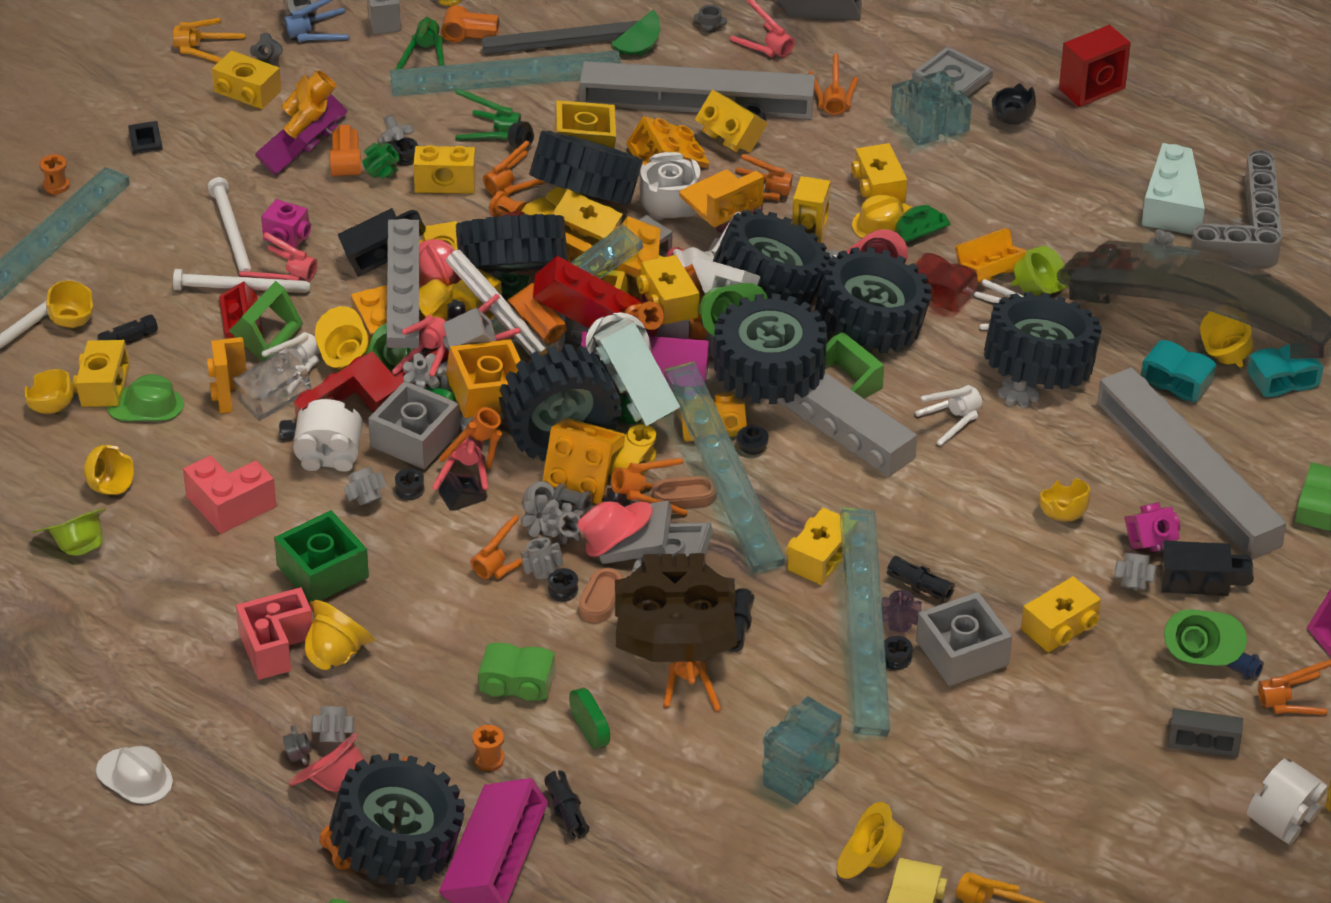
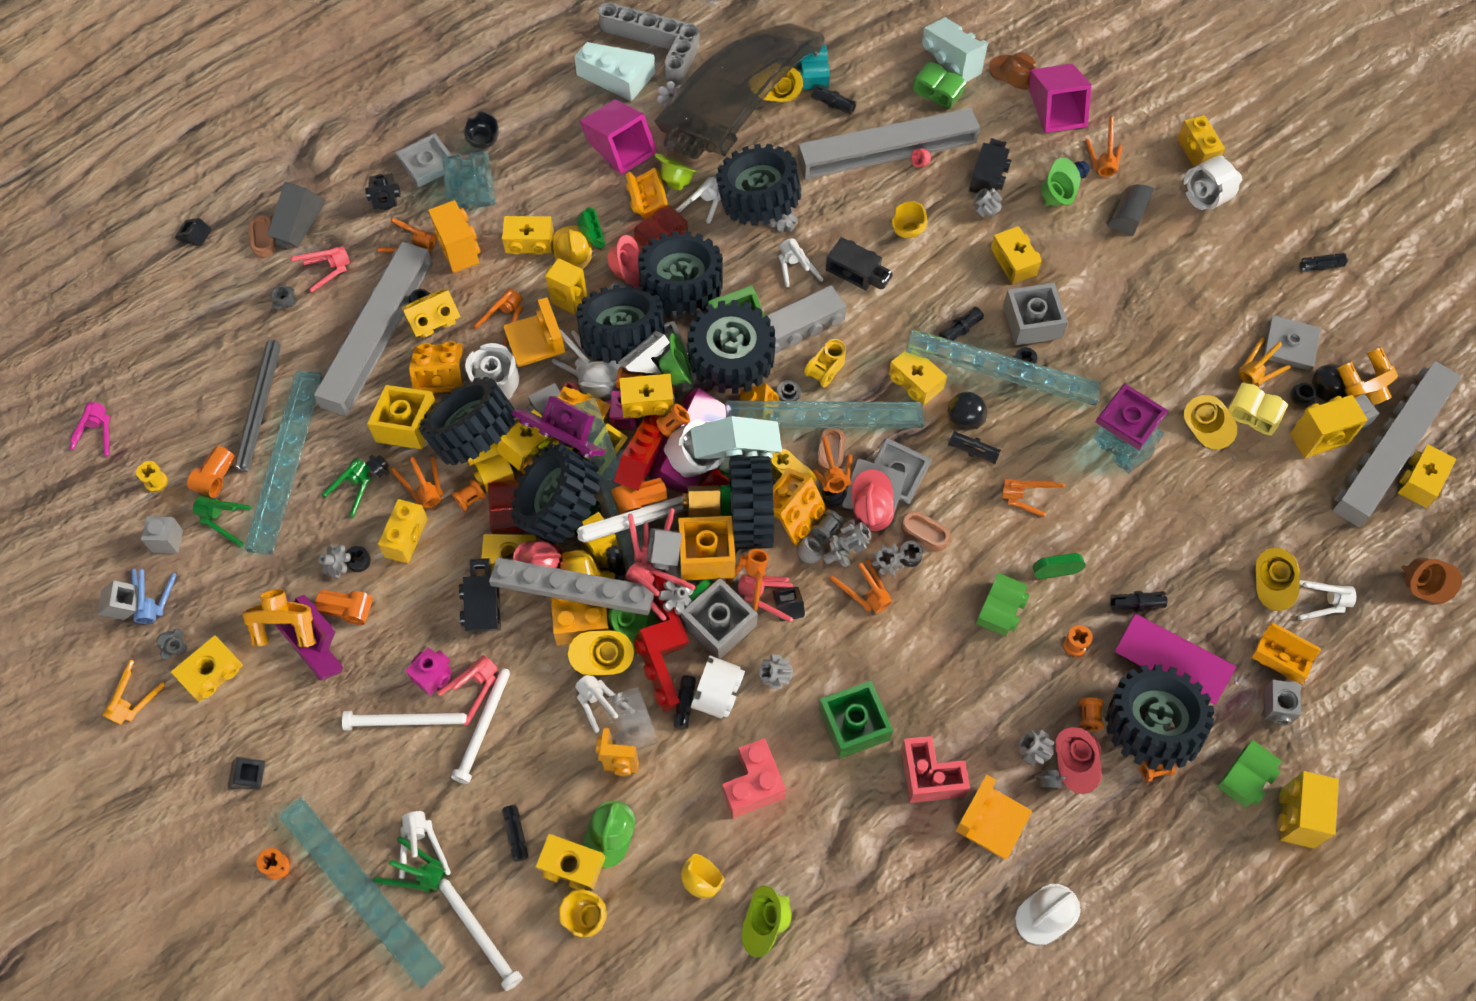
camera: 75 degrees left, 20 degrees up
(67, 272) = (427, 875): none -> green plant
(69, 304) = (470, 877): yellow hair -> none
(115, 258) = (414, 829): none -> white plant
(235, 304) = (519, 733): red slope -> none
(236, 695) = (993, 820): none -> light orange bracket
(280, 302) = (552, 711): bright green tile -> none
(333, 637) = (946, 728): yellow piece -> none
(381, 160) = (370, 578): green gear -> none
(412, 491) = (764, 641): black bush -> none
(589, 222) = (565, 423): none -> magenta bracket
(640, 37) = (287, 349): green tile -> none
(675, 609) = (970, 475): dark brown brick -> none
(792, 606) = (967, 410): none -> black hair
(808, 461) = (825, 366): none -> yellow piece
(809, 717) = (1131, 416): none -> magenta tile
(840, 111) = (455, 236): none -> light orange brick
(883, 48) = (382, 191): none -> black brick
(900, 610) = (993, 342): gear -> none
(971, 462) = (857, 265): none -> black brick
(1066, 214) = (619, 135): none -> dark pink slope
(1094, 65) = (466, 70): red brick -> none
(1152, 527) = (951, 180): dark pink brick -> none
(1178, 370) = (797, 122): teal brick -> none
(1186, 502) = (920, 155): none -> coral hinge
(1241, 401) = (833, 99): none -> black pin

